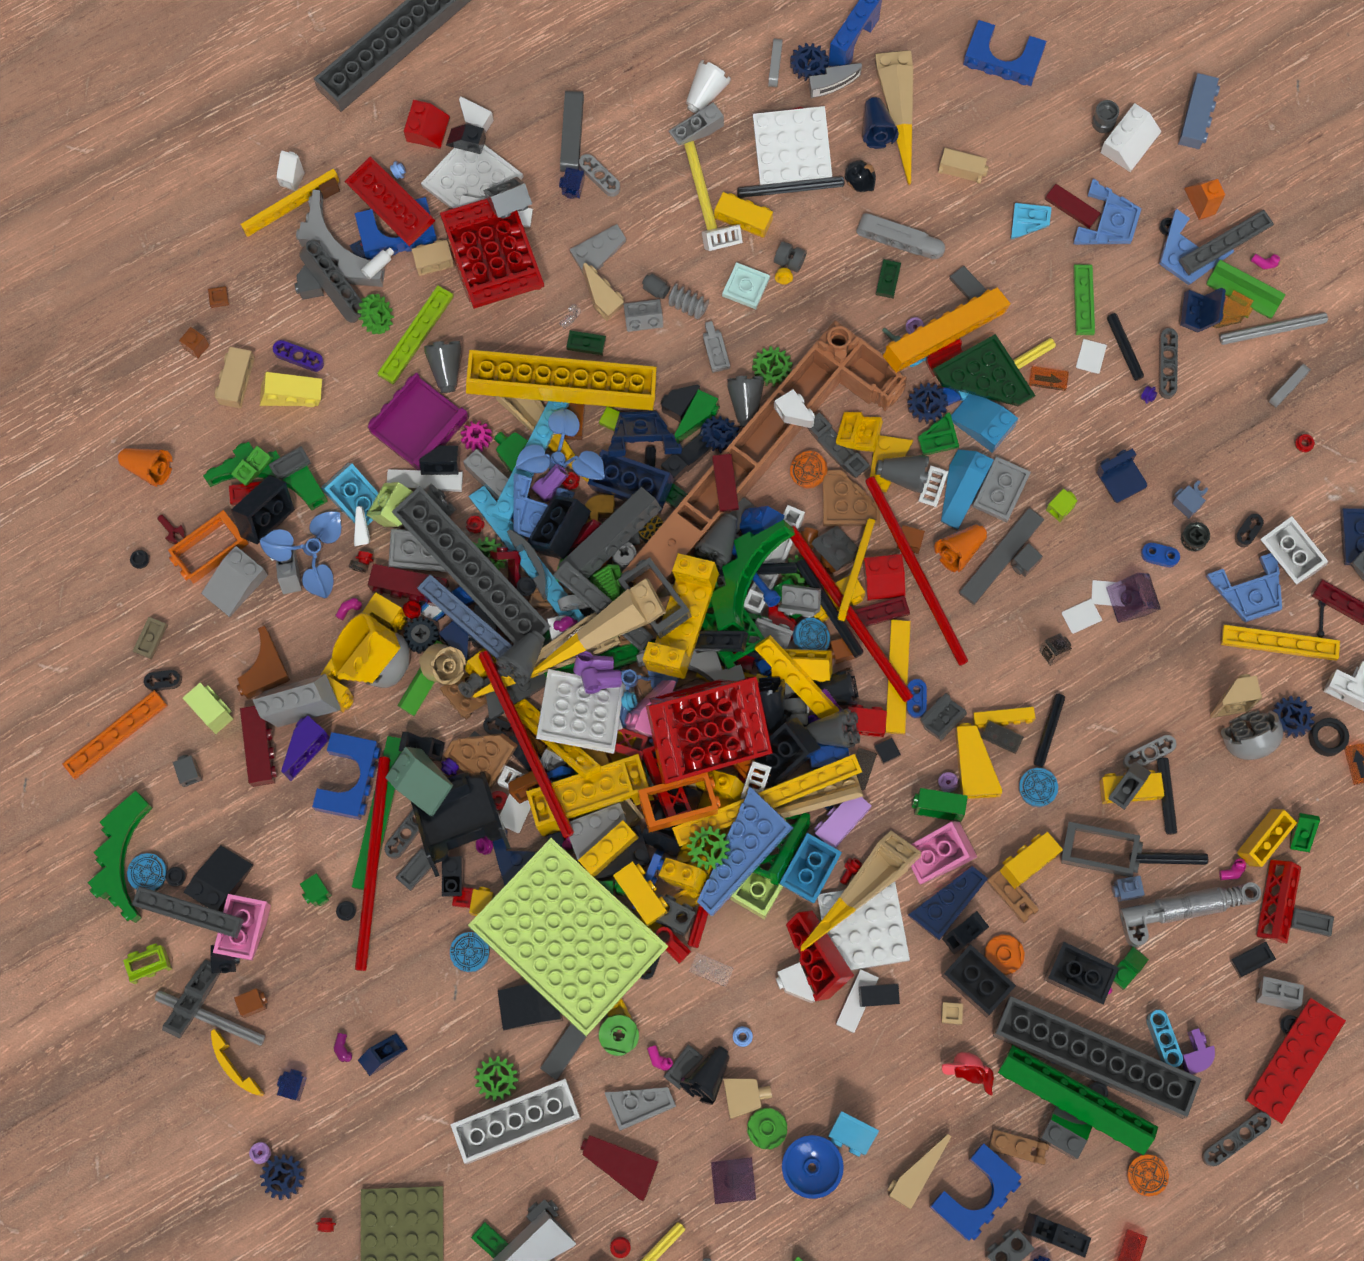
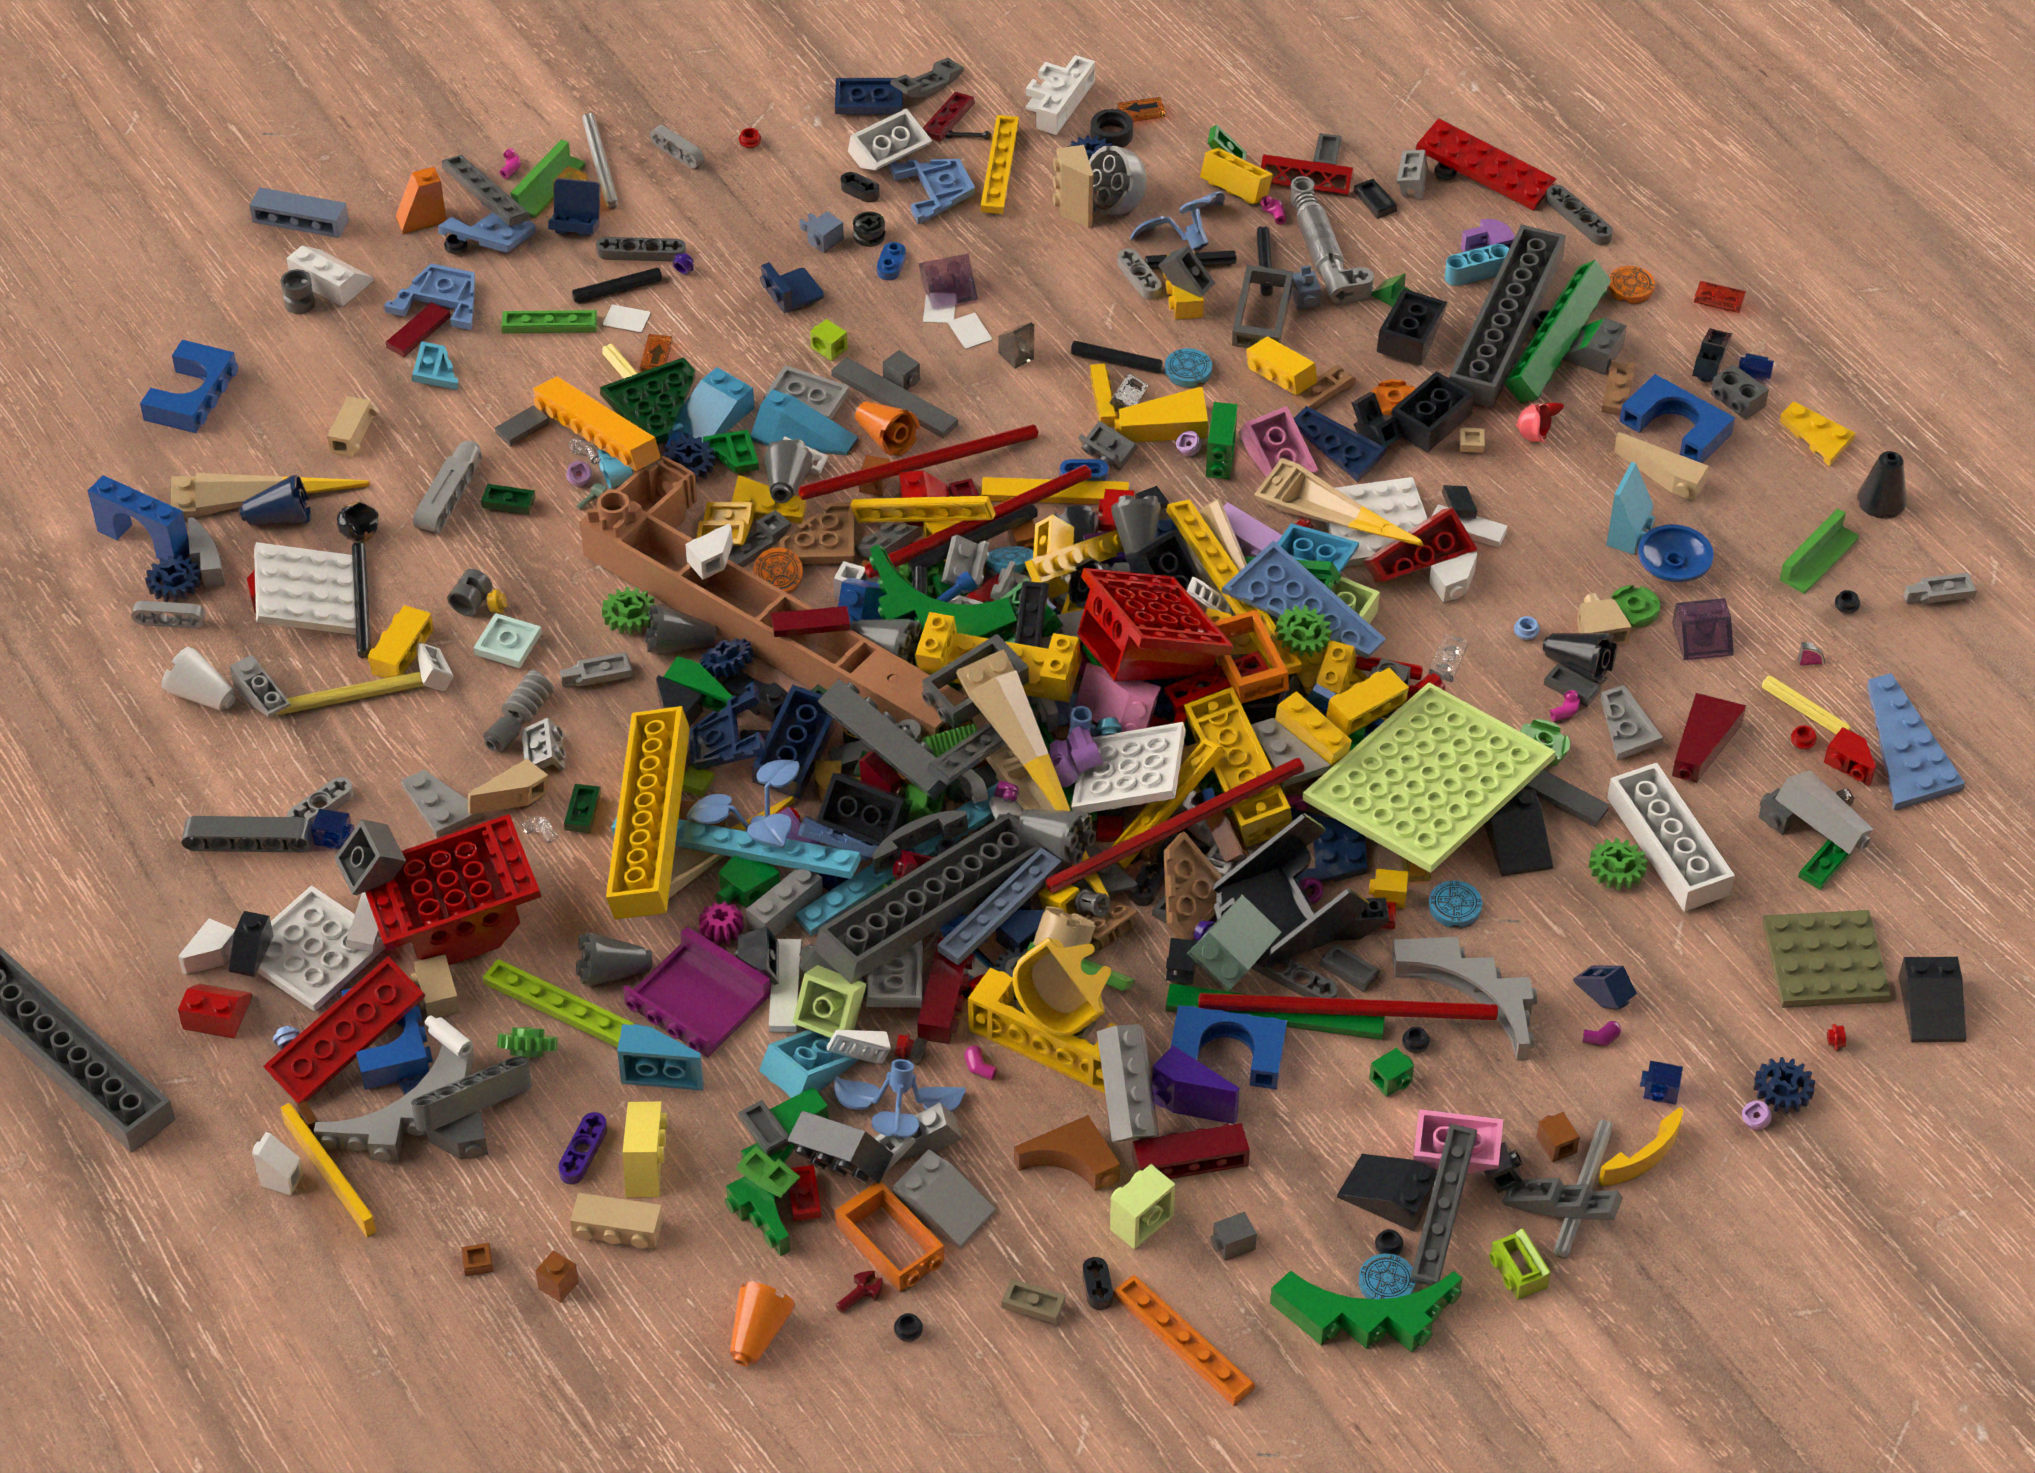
camera: 95 degrees left, 25 degrees down
(355, 395) = (657, 1060): none -> dark azure slope
(374, 979) = (1445, 963): none -> light grey arch
(1197, 796) = (1195, 232): none -> medium blue plant

